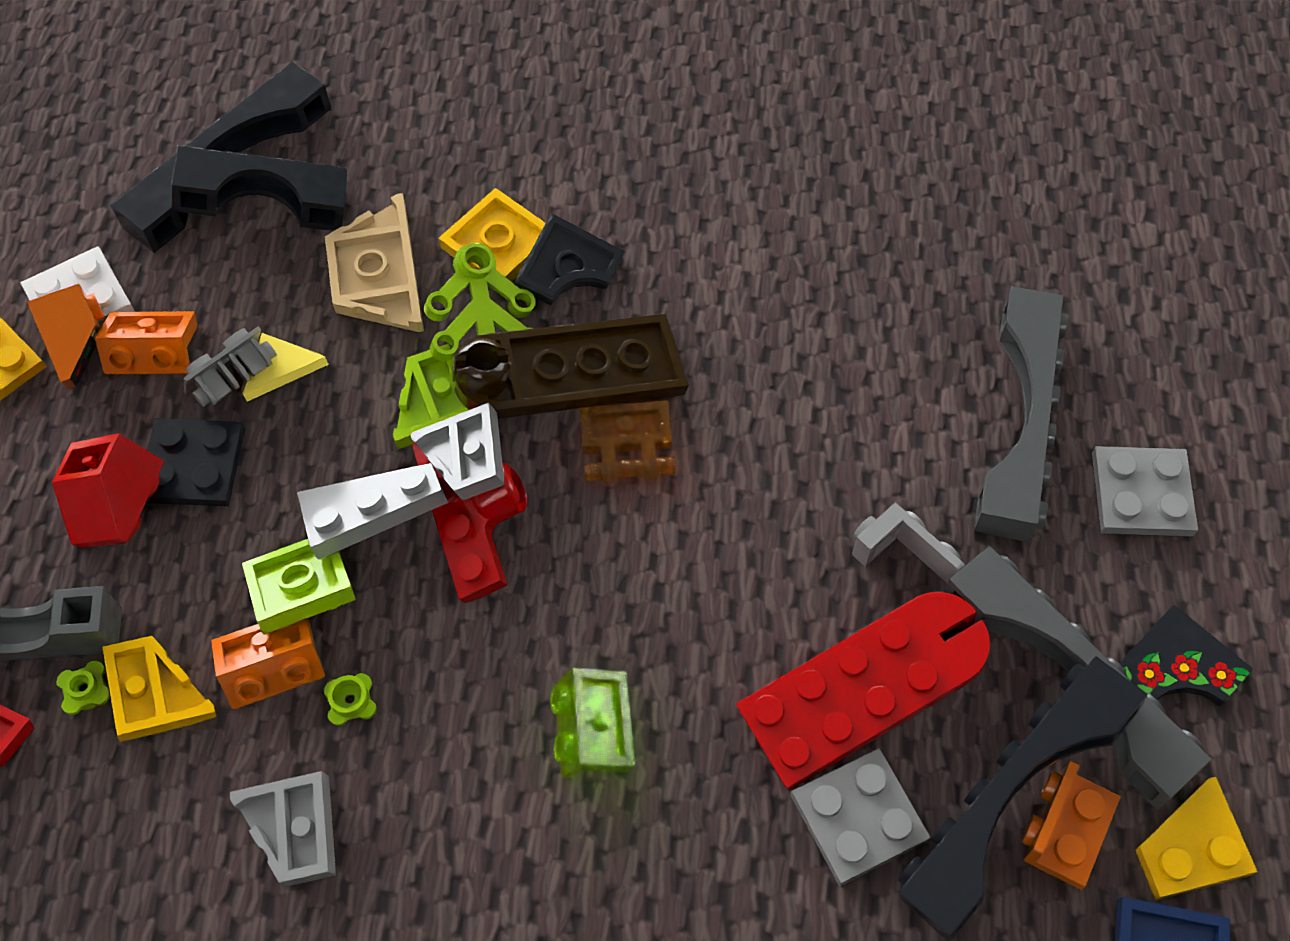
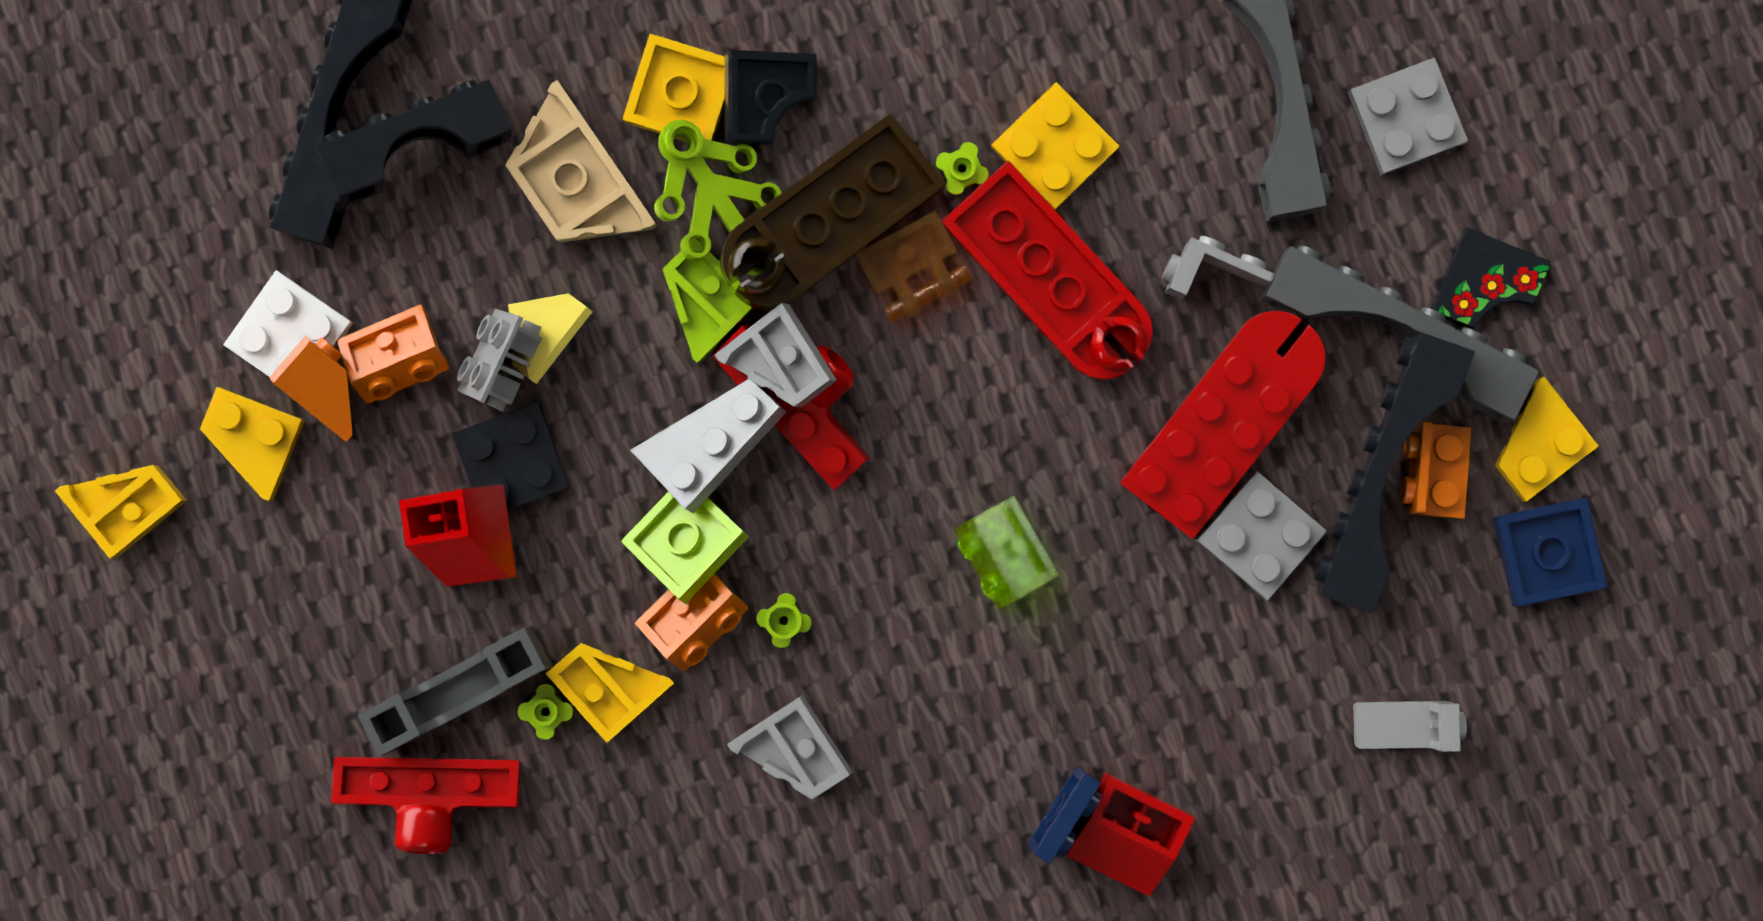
camera: 25 degrees left, 25 degrees up
(706, 391) = (964, 156): none -> lime plate
(751, 498) = (1051, 275): none -> red plate
(800, 396) = (1055, 145): none -> yellow plate

